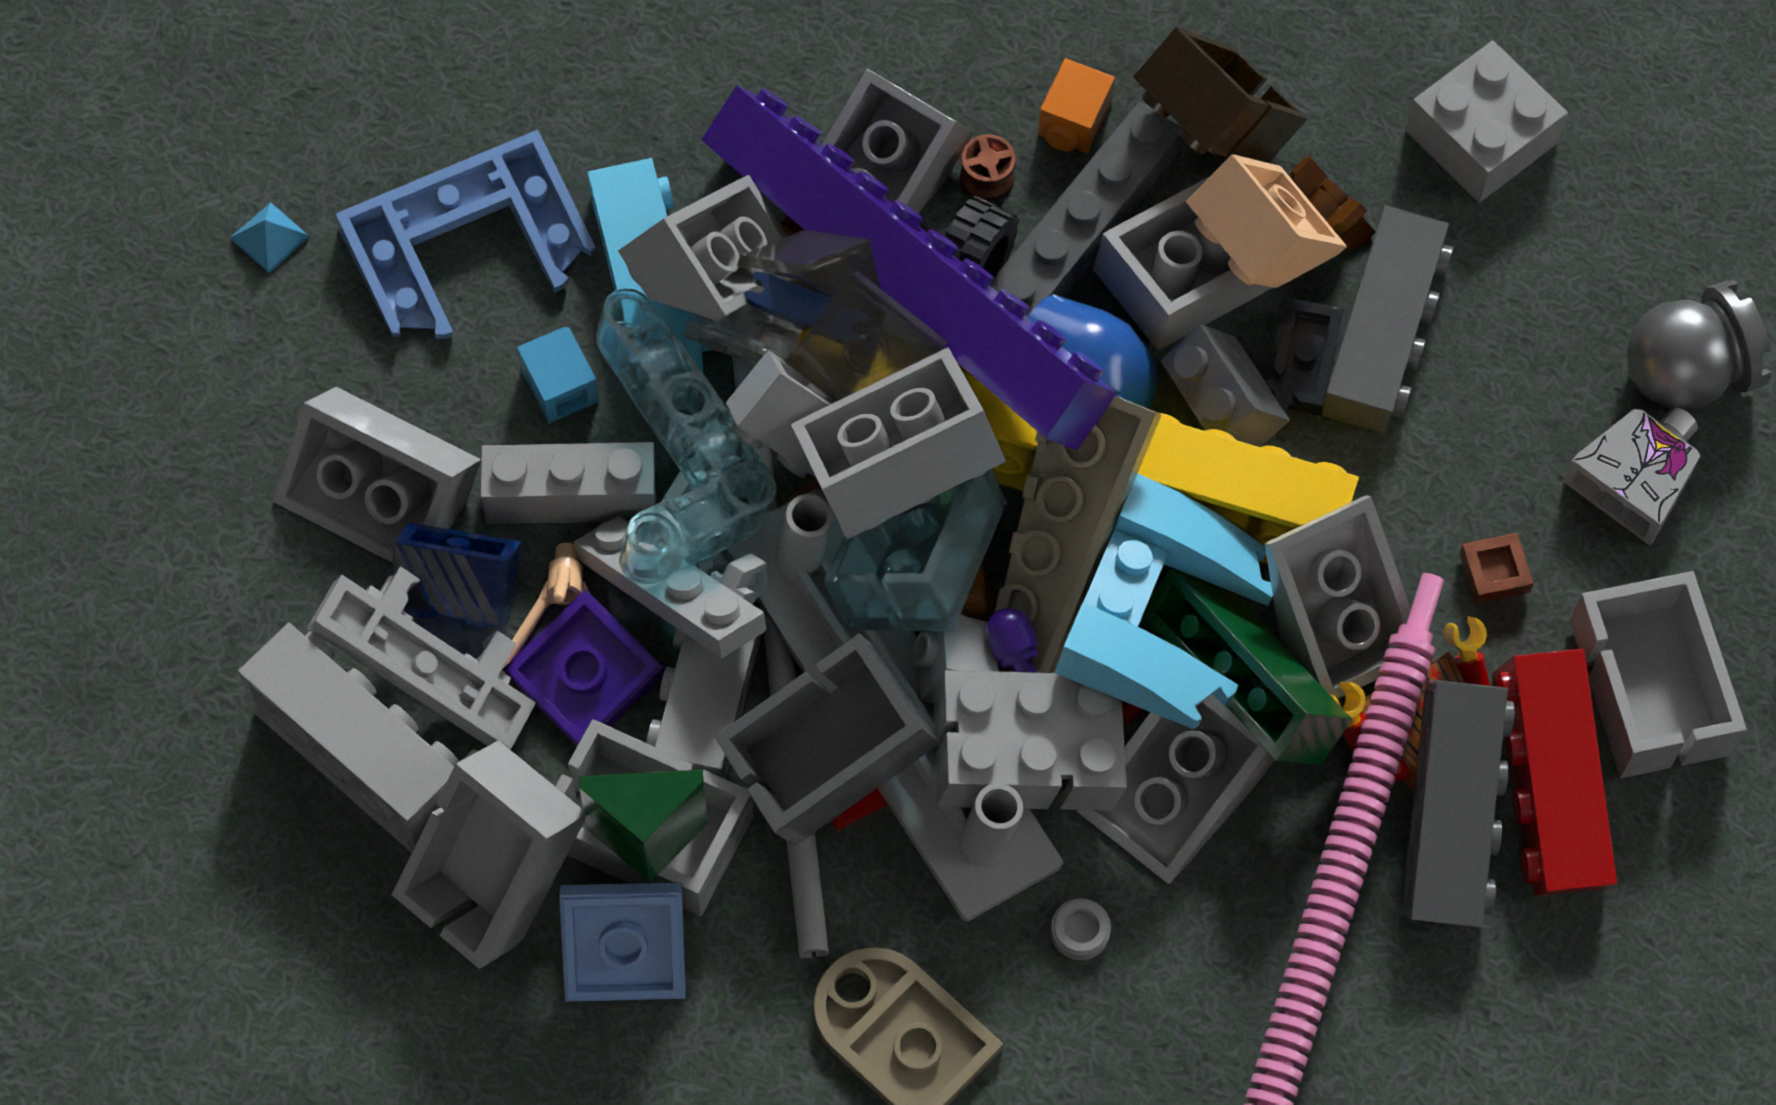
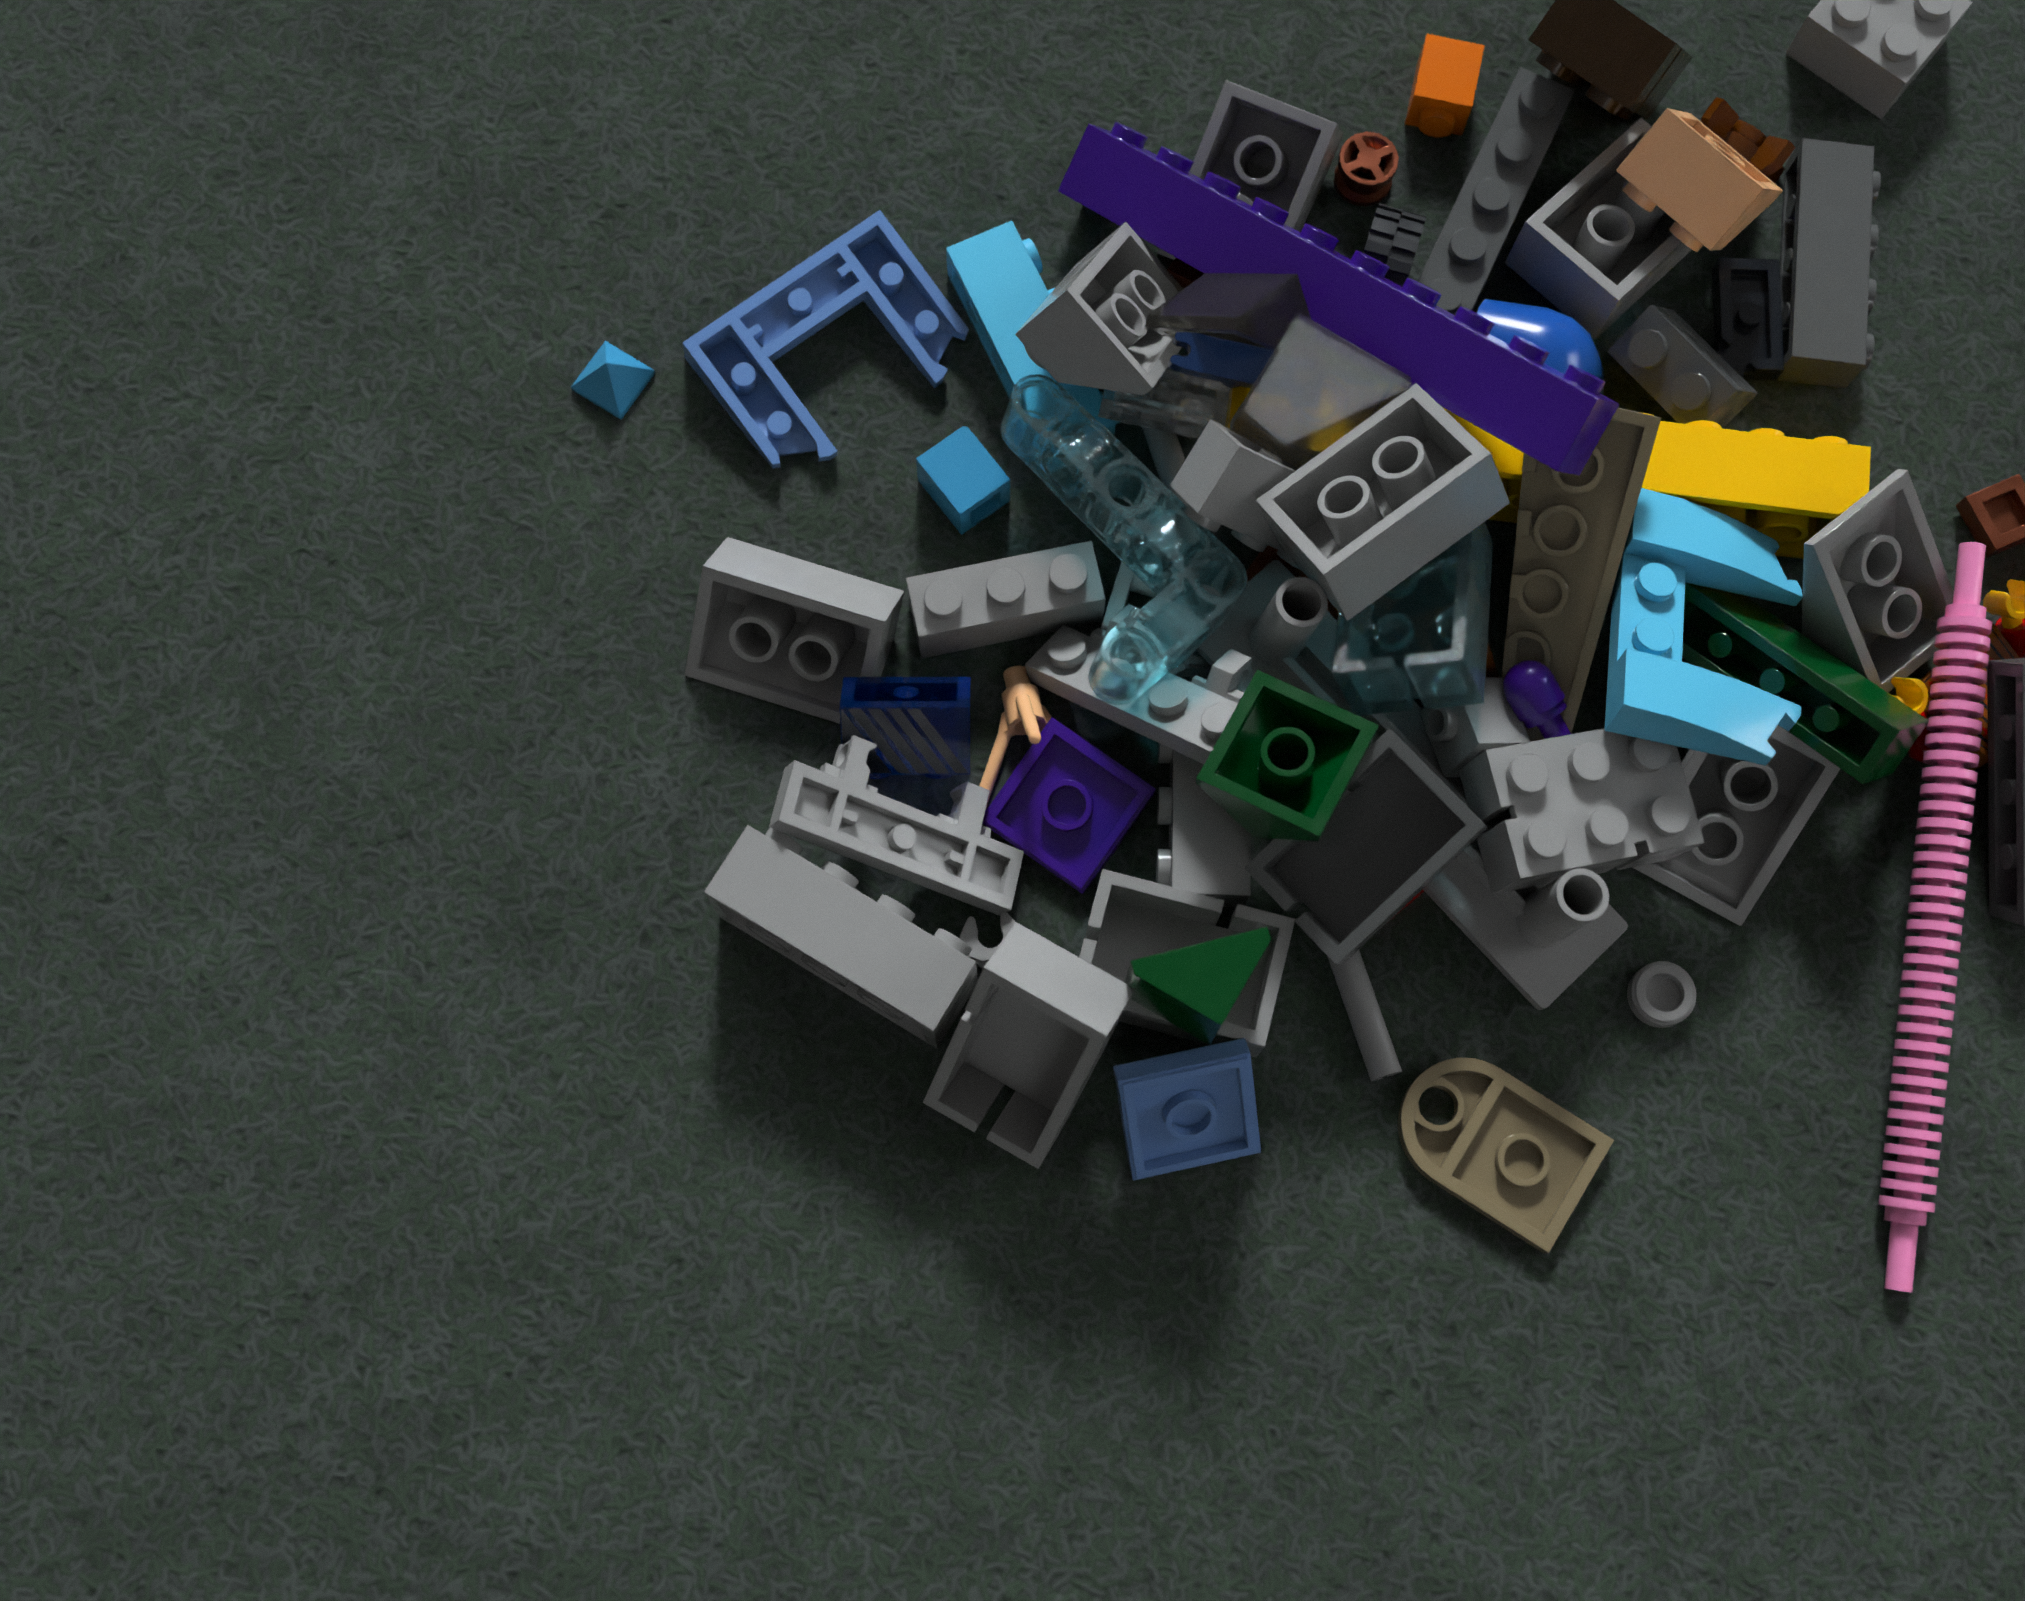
camera: 10 degrees left, 10 degrees up
(762, 645) = (1284, 760): none -> dark green slope

